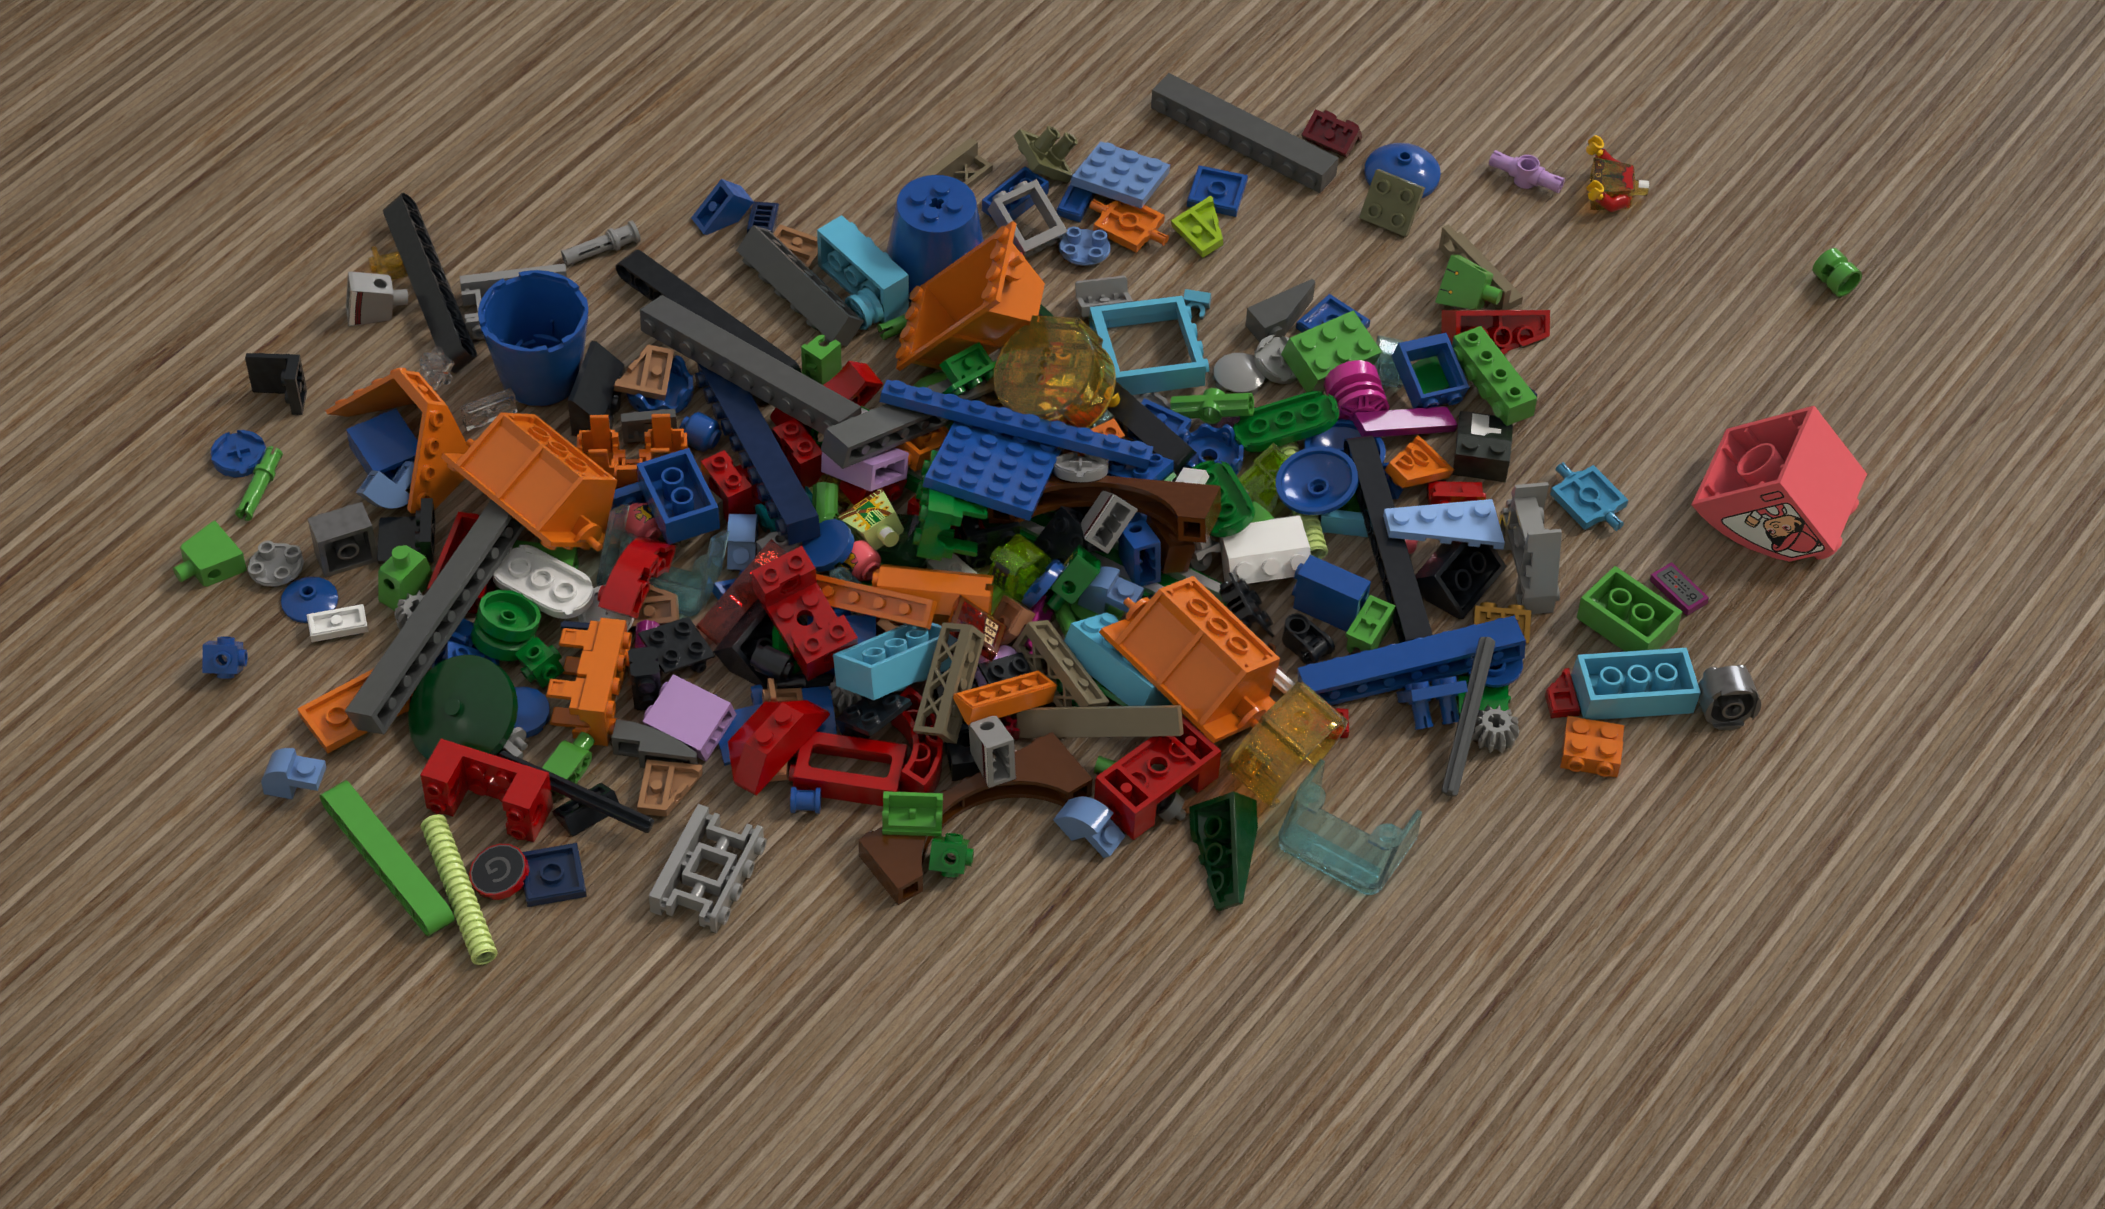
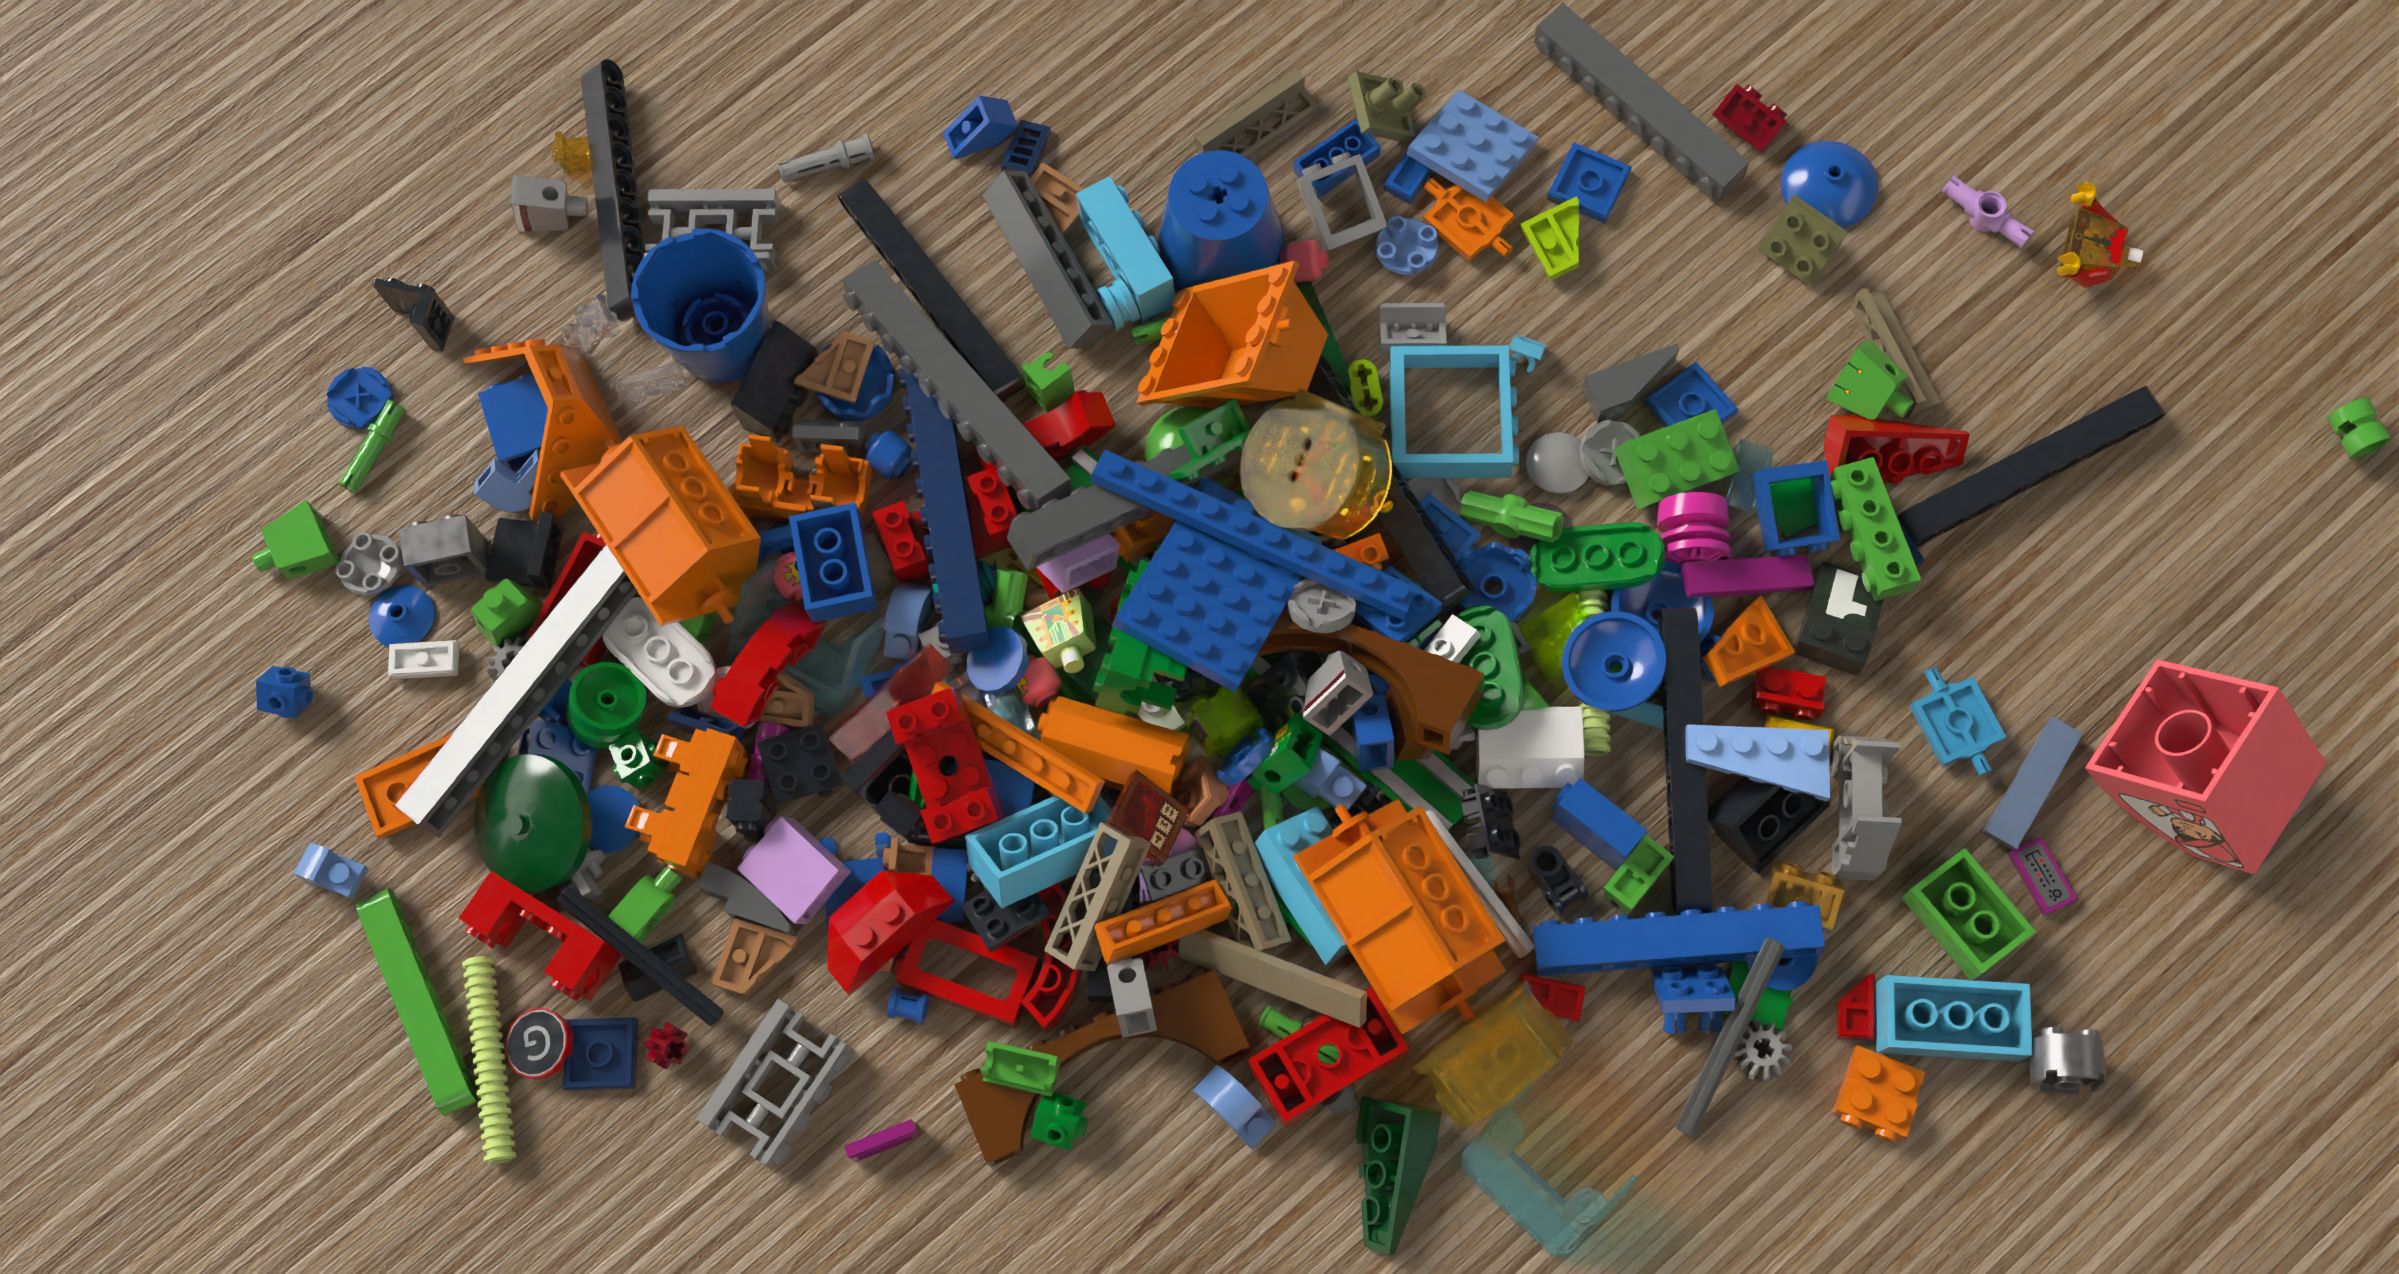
camera: 20 degrees right, 20 degrees up
(609, 854) = (666, 1045): none -> dark red gear
(806, 893) = (882, 1141): none -> magenta tile
(1603, 326) = (2031, 466): none -> black beam
(1655, 529) = (2032, 783): none -> sand blue slope

